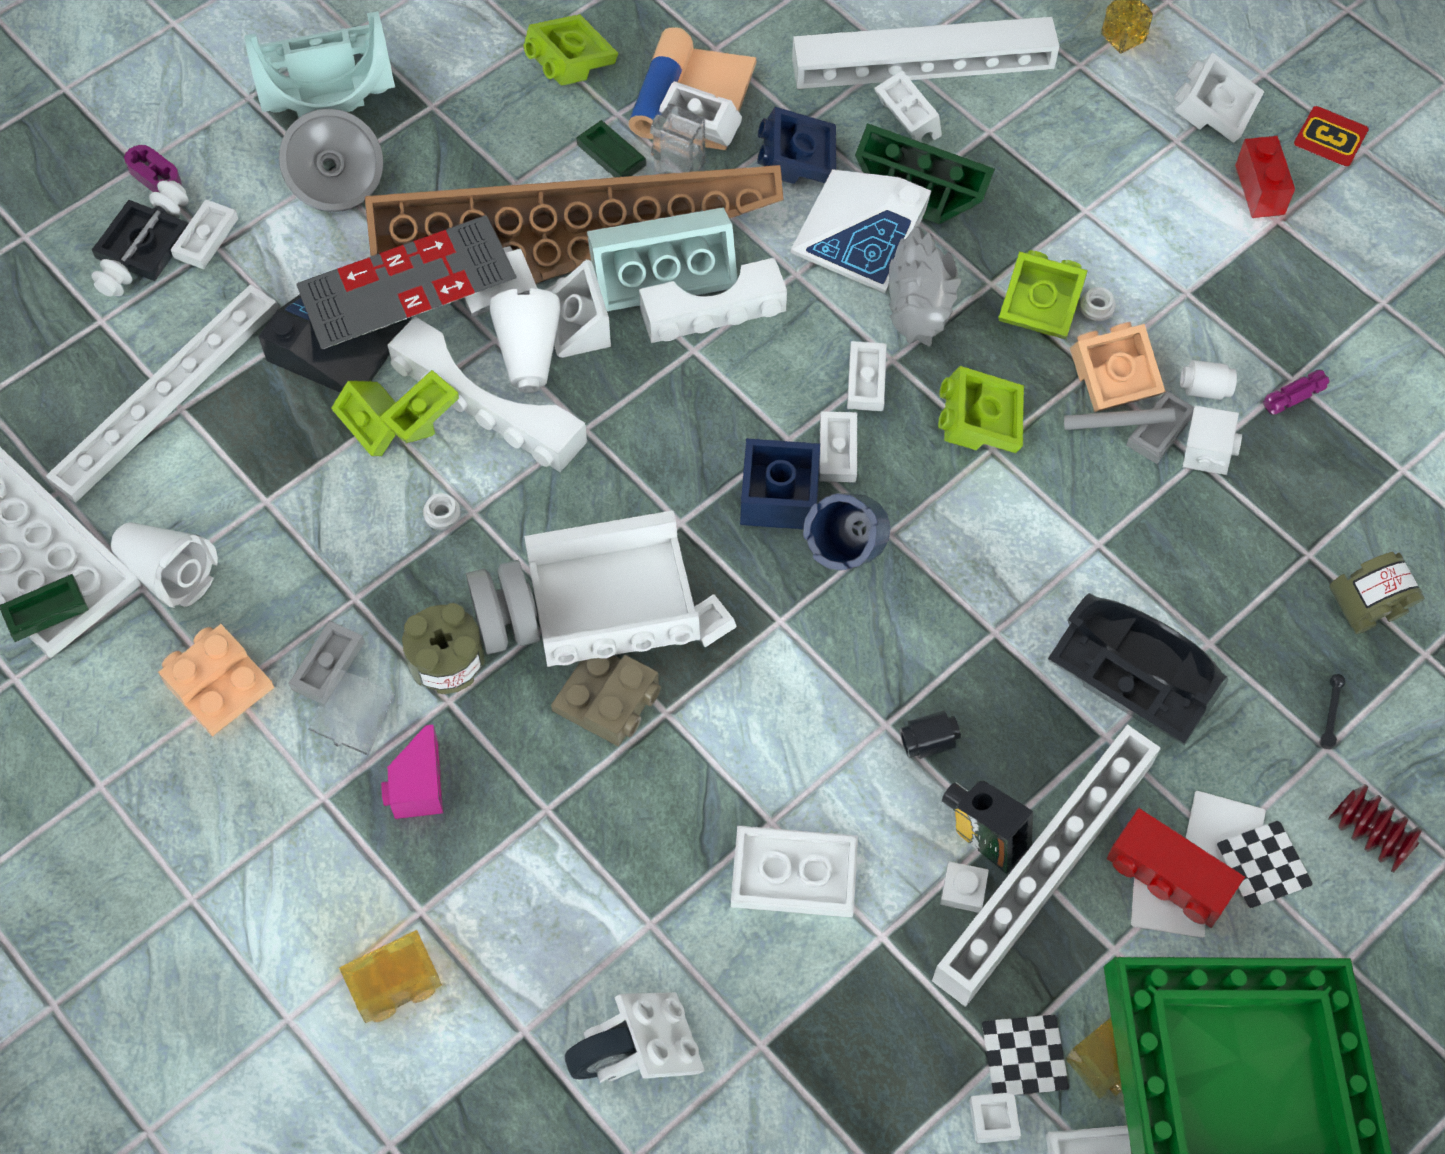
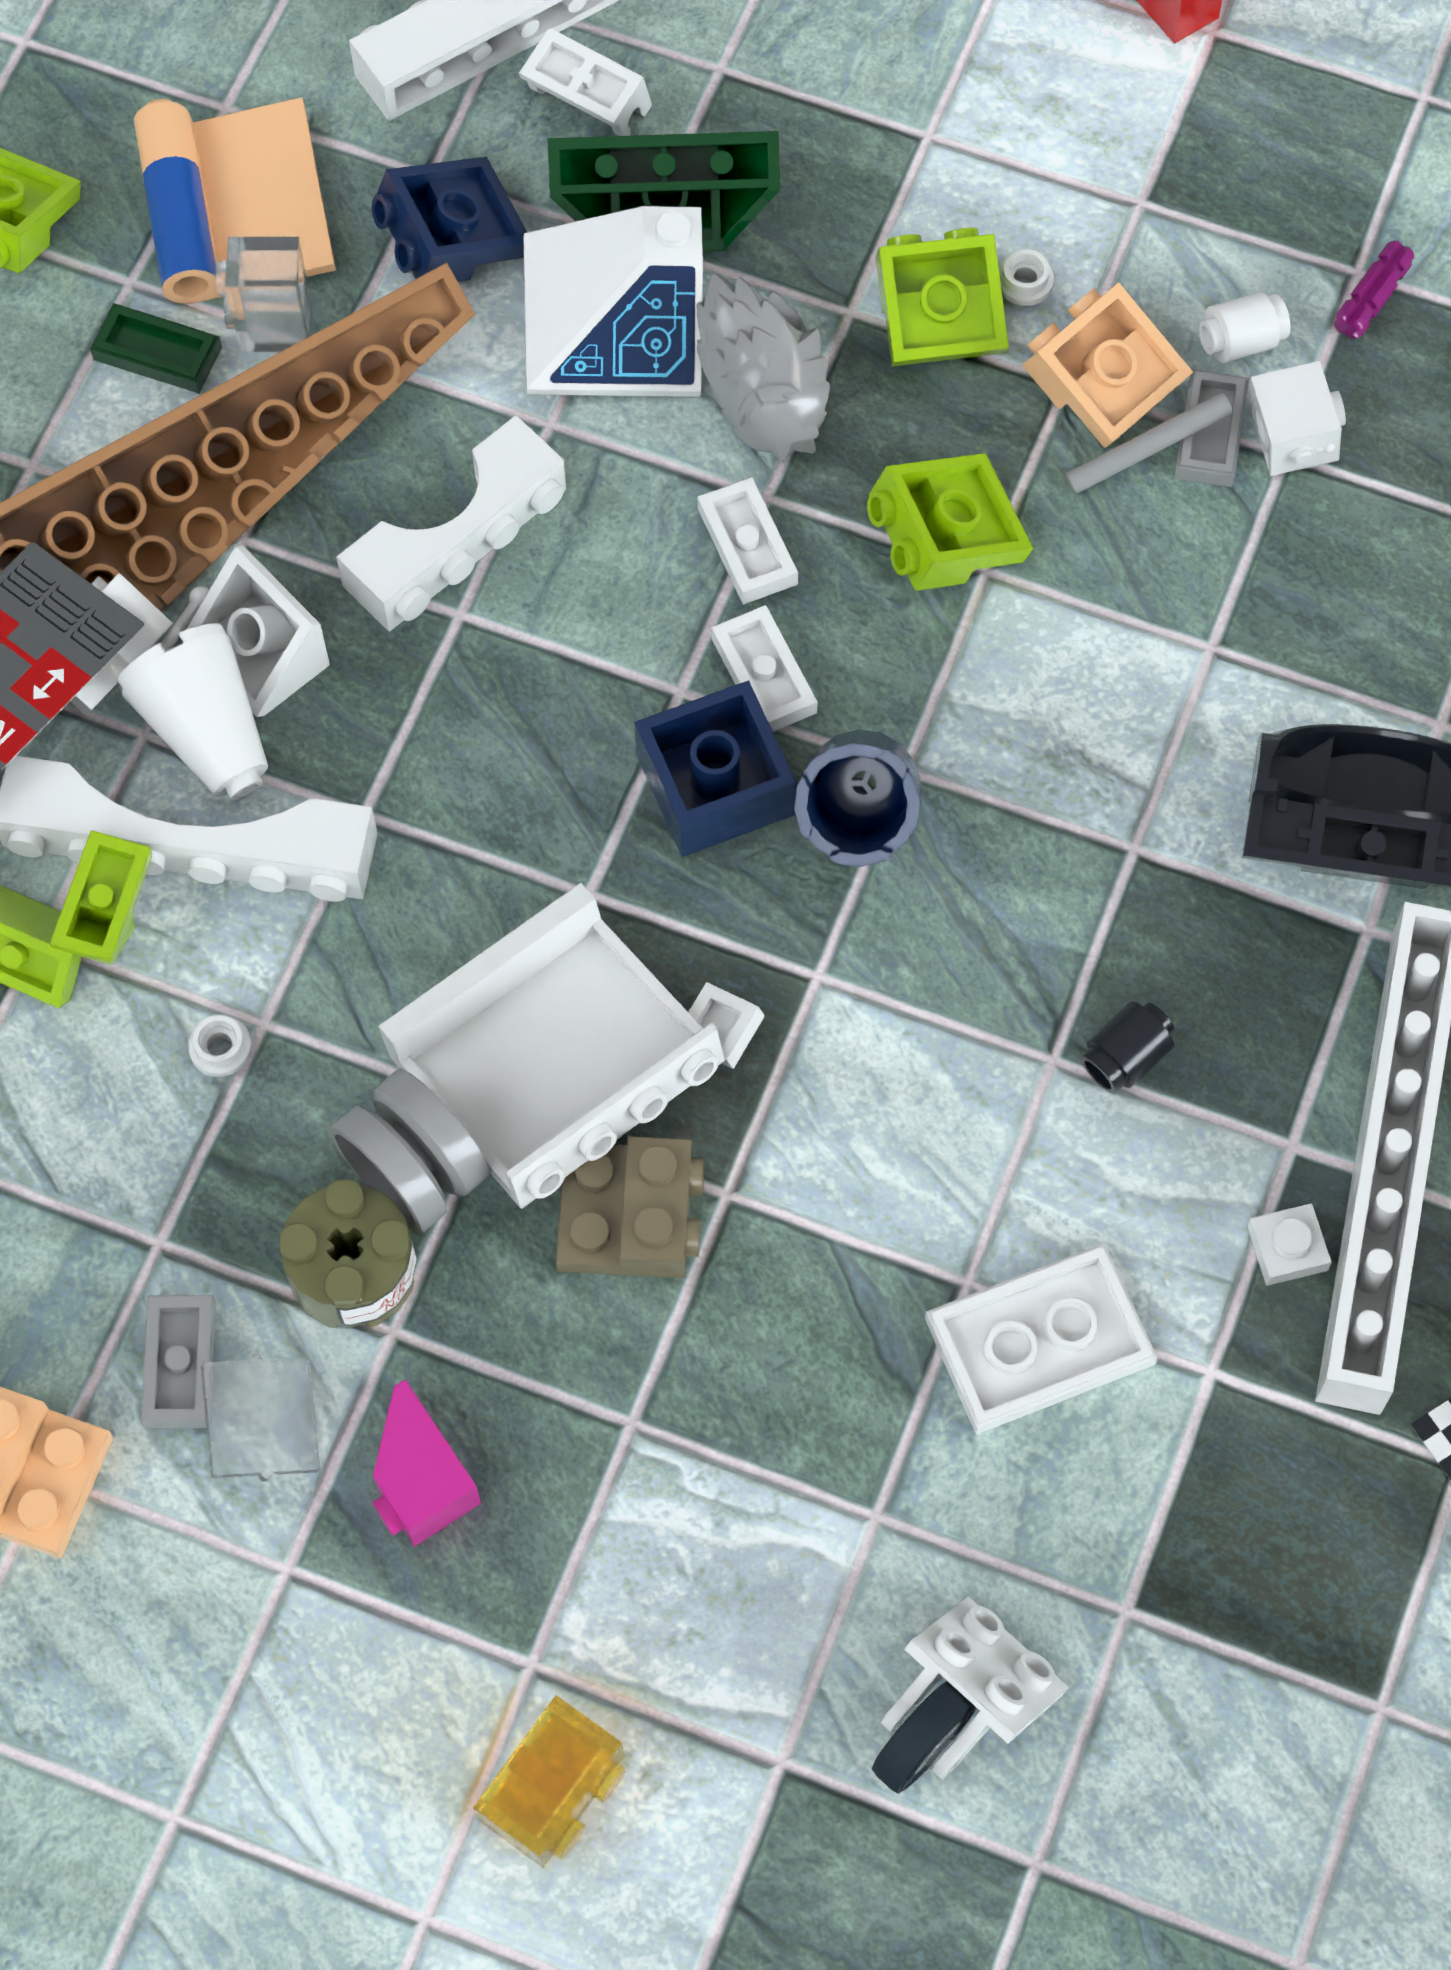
camera: 25 degrees left, 5 degrees up
(686, 248) = (362, 465): light aqua slope -> none
(719, 113) = (307, 216): white brick -> none
(991, 822) = (1283, 1133): black torso -> none

